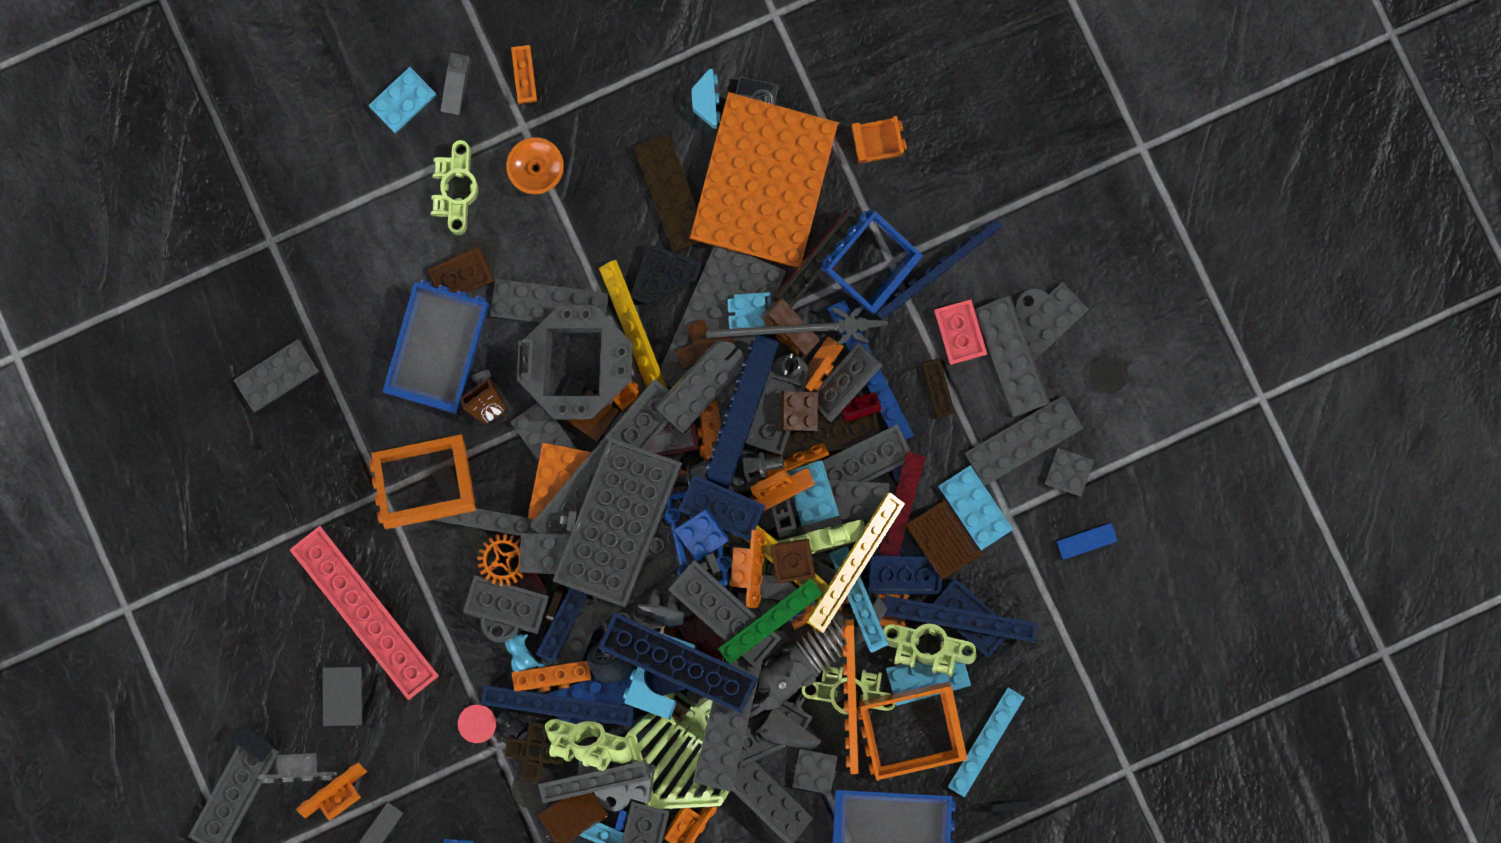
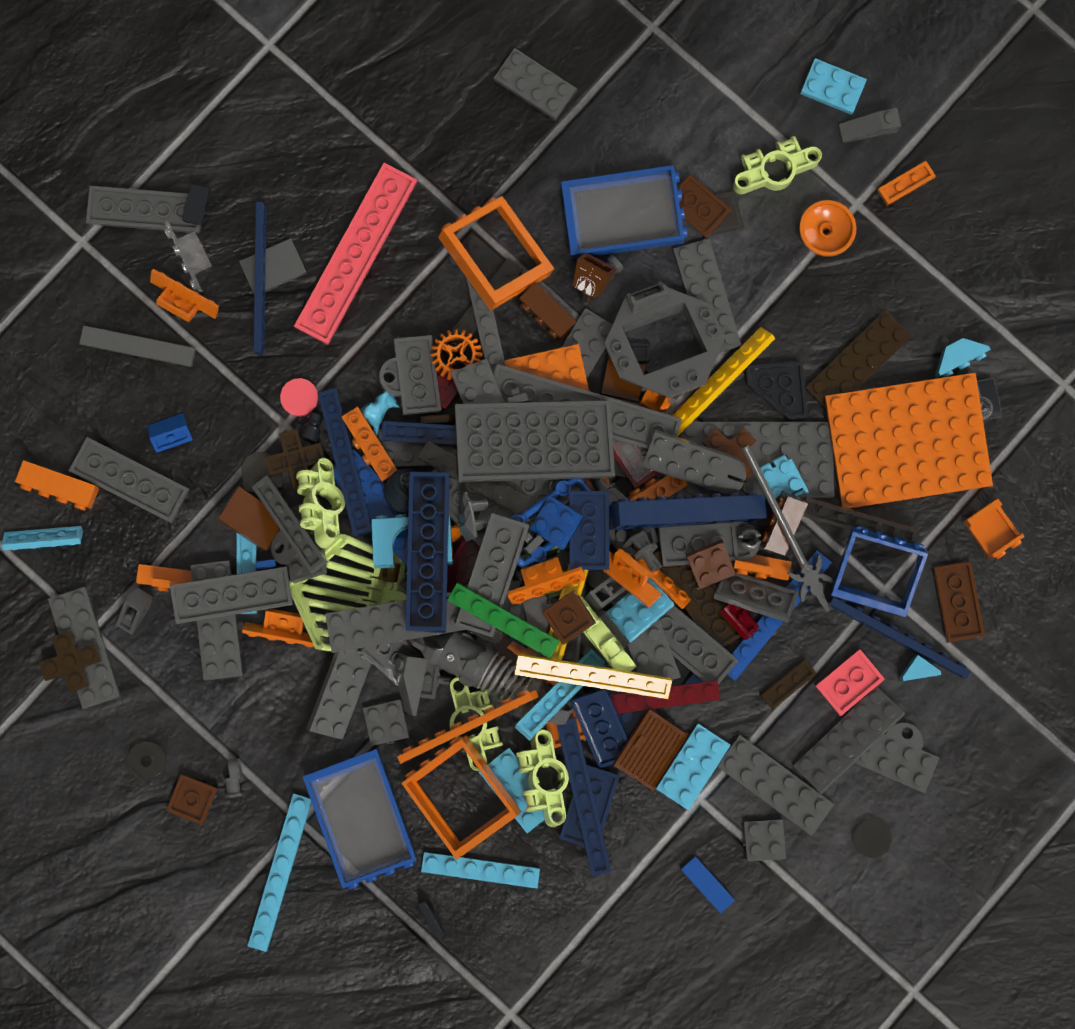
camera: 55 degrees right, 0 degrees up
(349, 712) = (260, 276): none -> dark blue tile
(498, 459) = (546, 312): none -> reddish brown brick
(930, 201) = (958, 601): none -> reddish brown tile
(975, 265) = (918, 669): none -> medium azure slope

